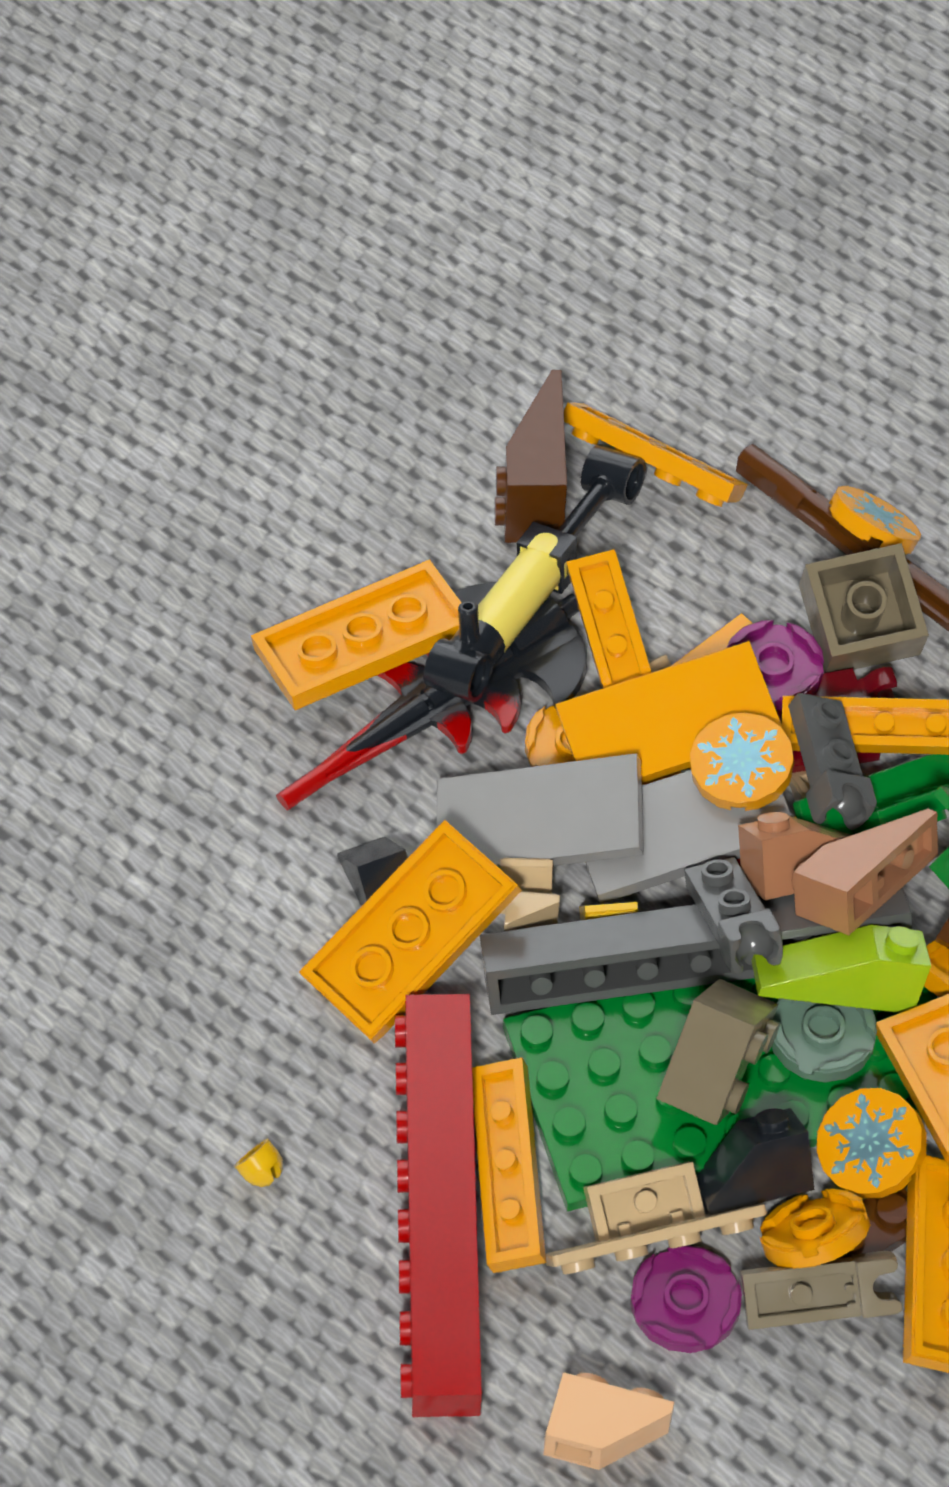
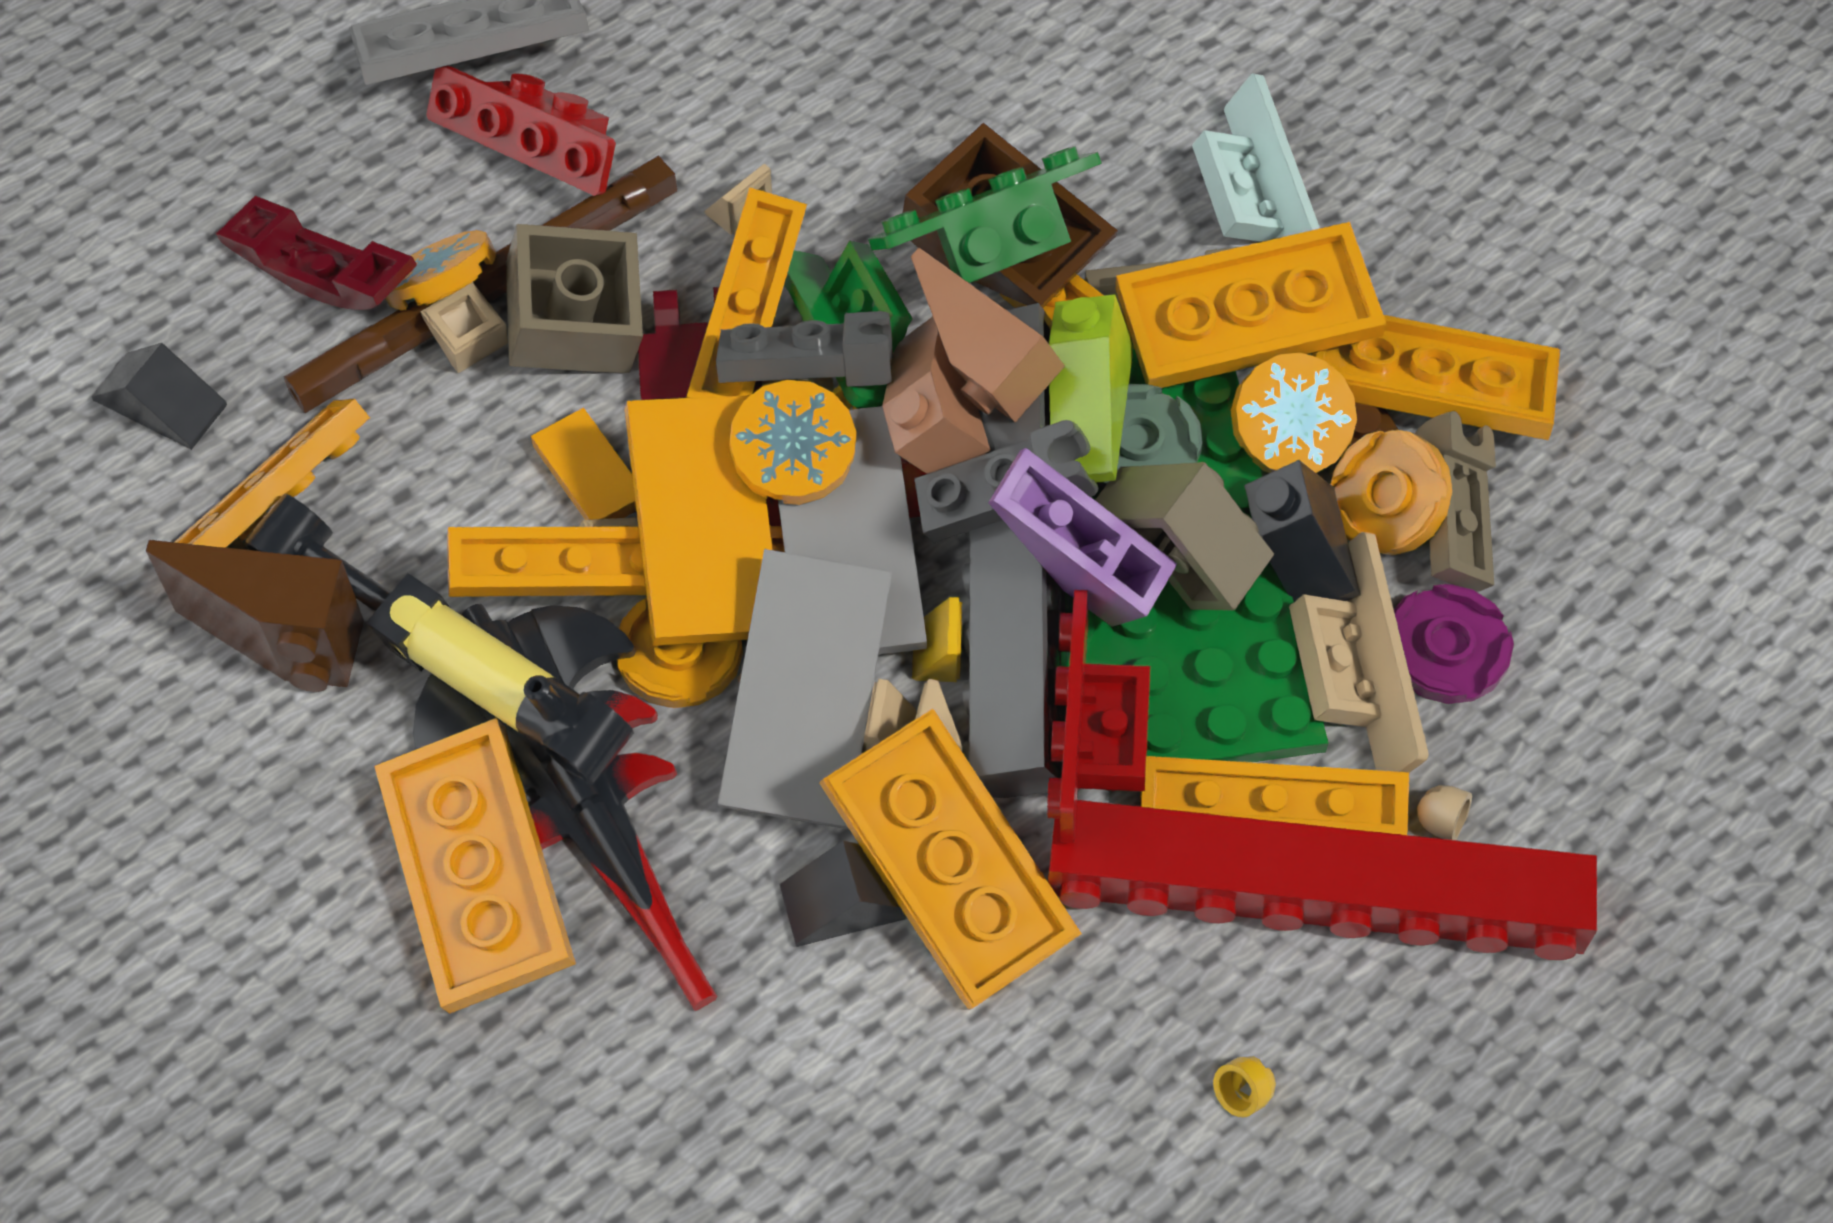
camera: 80 degrees left, 5 degrees up
(519, 1288) = (1444, 811): none -> tan hinge
(537, 1008) = (1104, 724): none -> red bracket
(603, 1422) = (1615, 747): light nougat slope -> none
(680, 954) = (1081, 541): none -> medium lavender slope
(724, 379) = (161, 395): none -> black slope
(786, 656) = (597, 400): magenta tile -> none
(828, 542) = (465, 327): none -> tan slope
(874, 440) = (312, 262): none -> dark red slope

